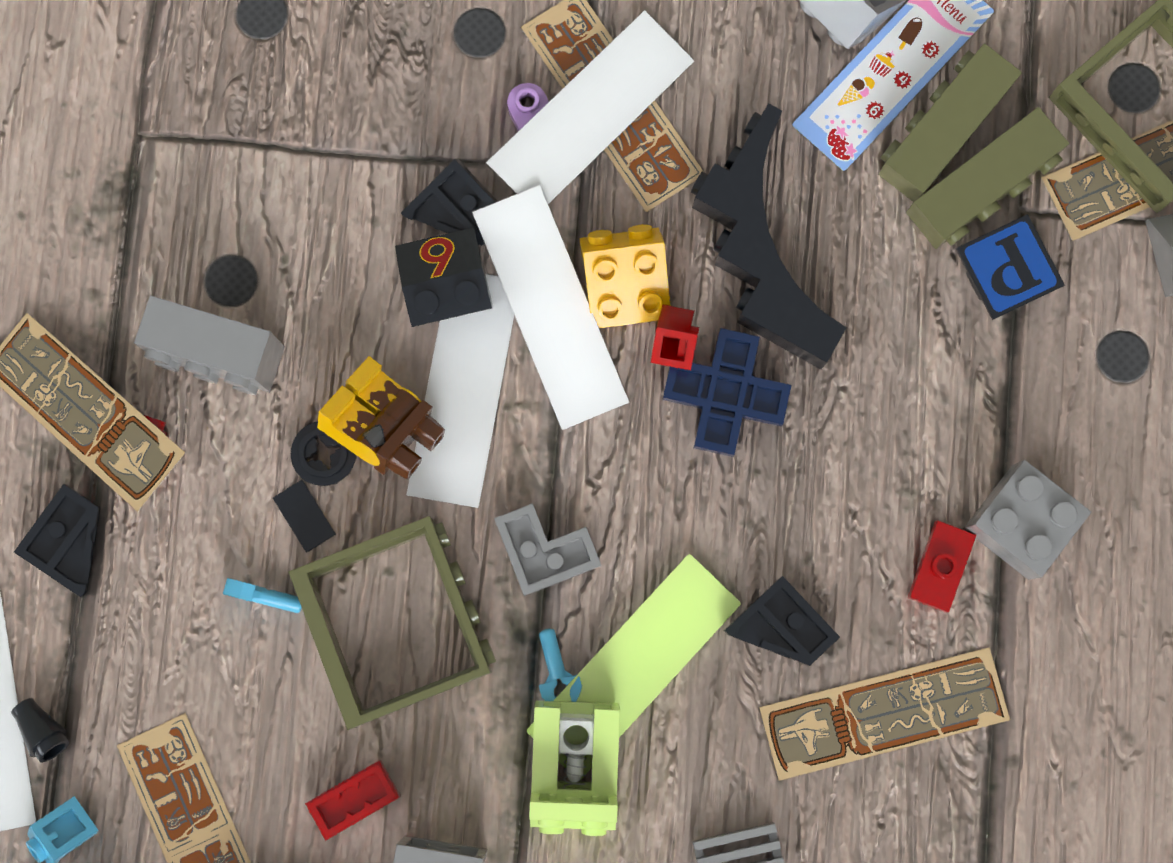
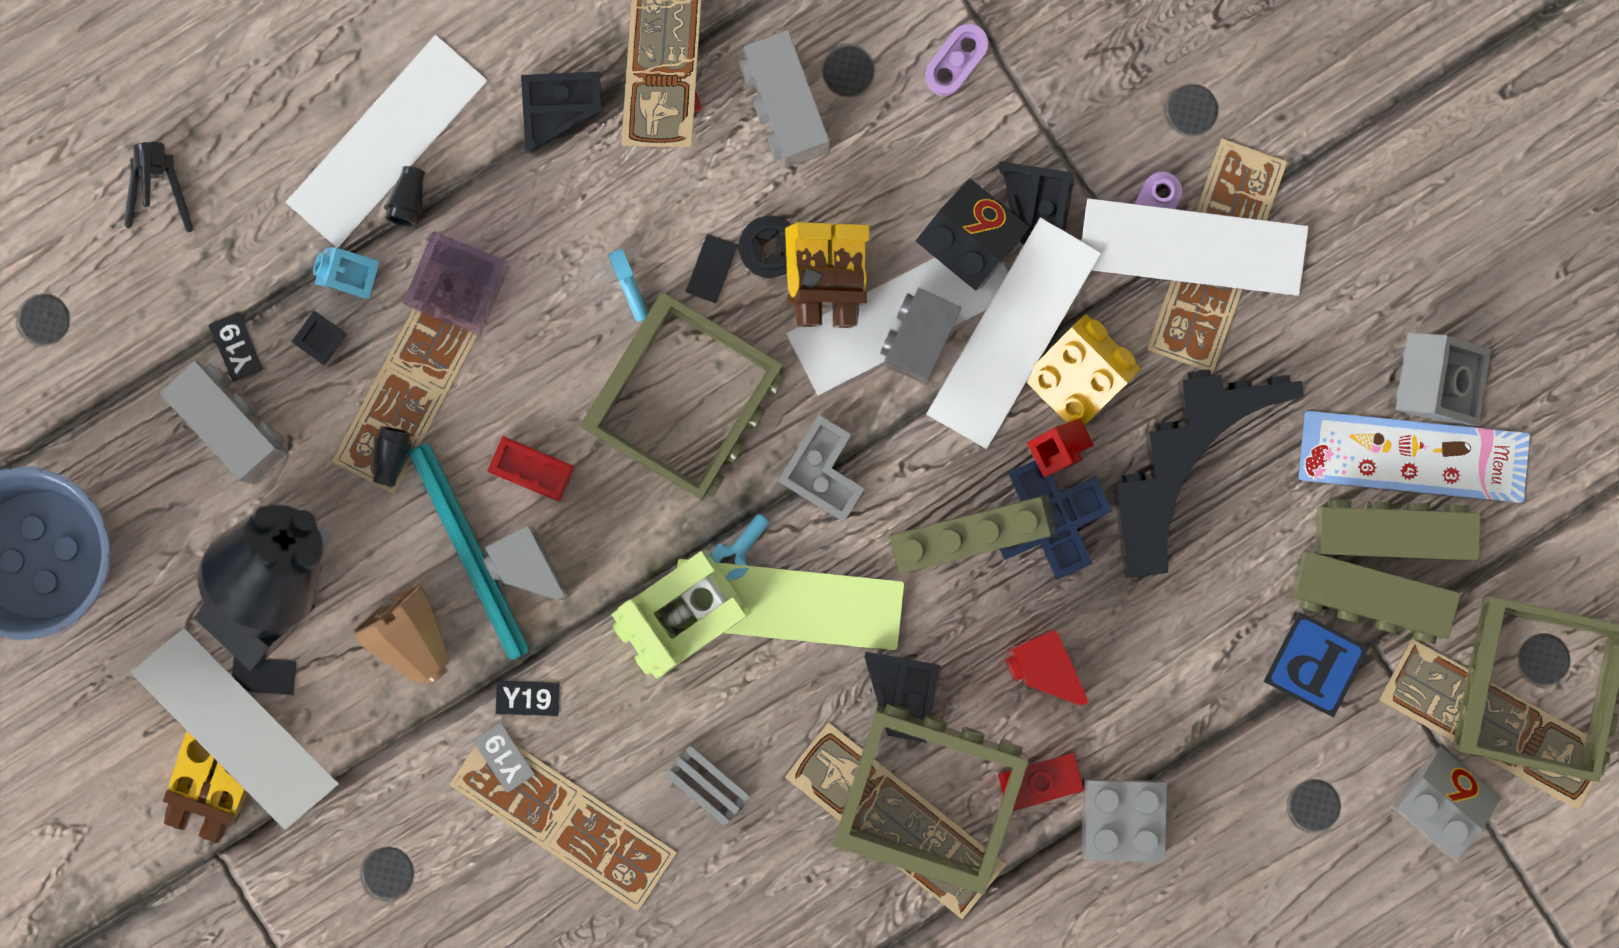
camera: 55 degrees right, 5 degrees up
(143, 744) = (456, 284): none -> clear purple brick
(292, 186) = (955, 60): none -> lavender plate
(495, 381) = (921, 335): none -> flat silver brick
(694, 464) = (973, 534): none -> olive brick
(852, 485) = (1046, 667): none -> red slope
(931, 722) = (912, 858): none -> olive window

